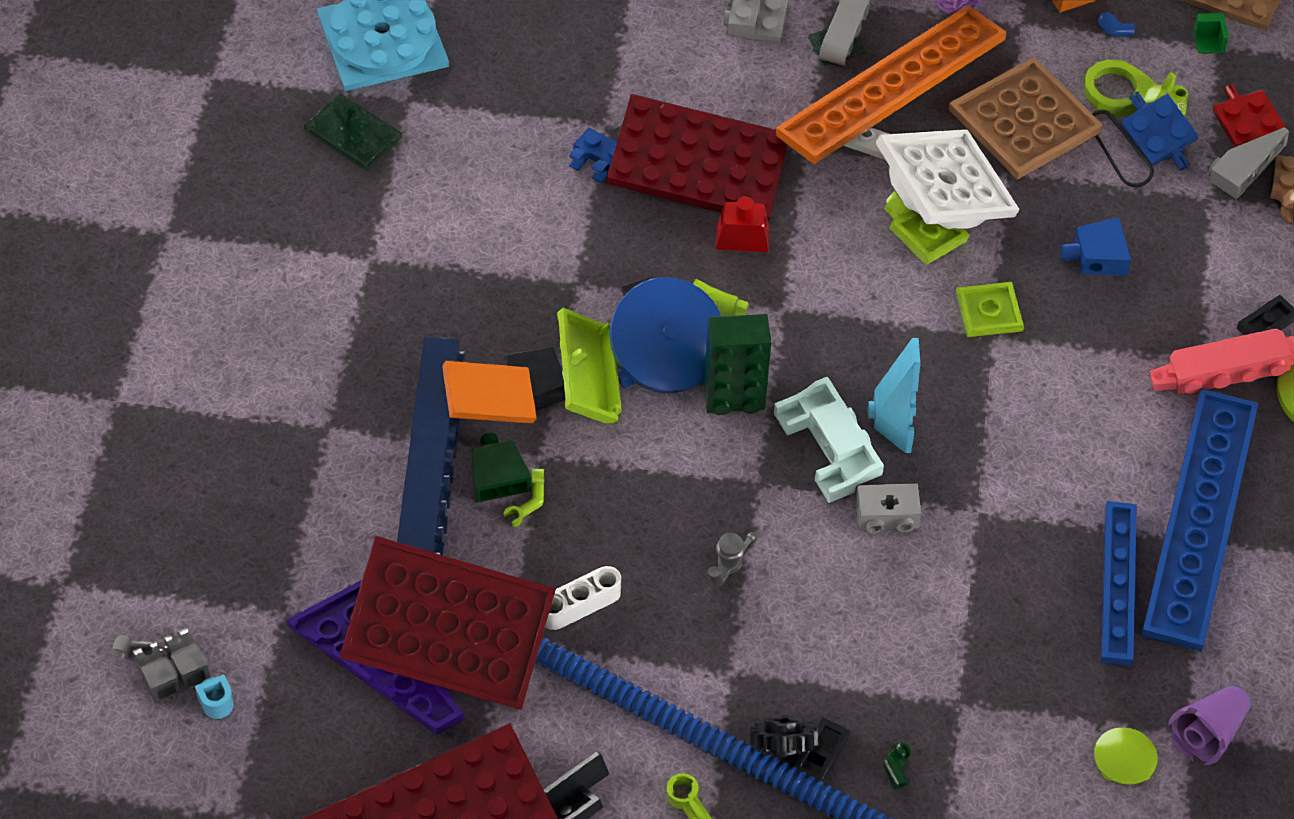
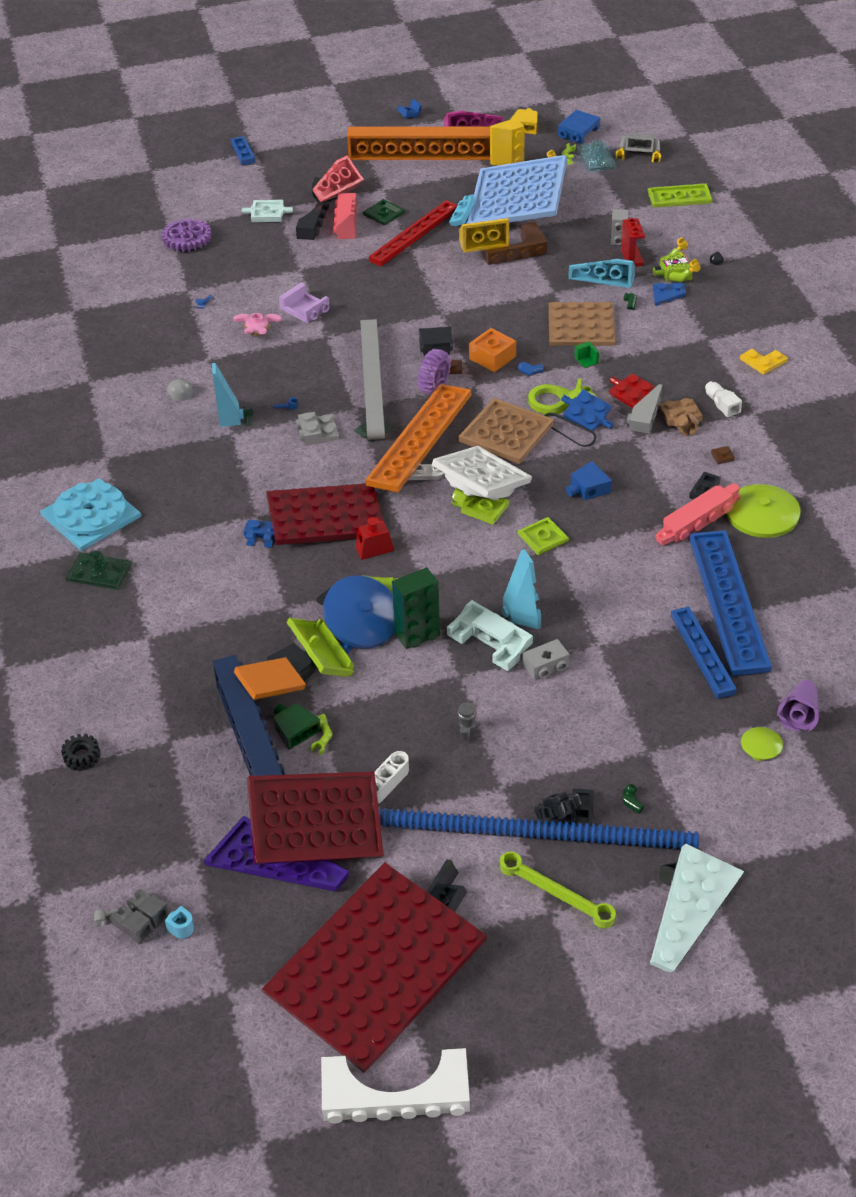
camera: 20 degrees left, 10 degrees down
(207, 412) = (81, 761): none -> black tyre

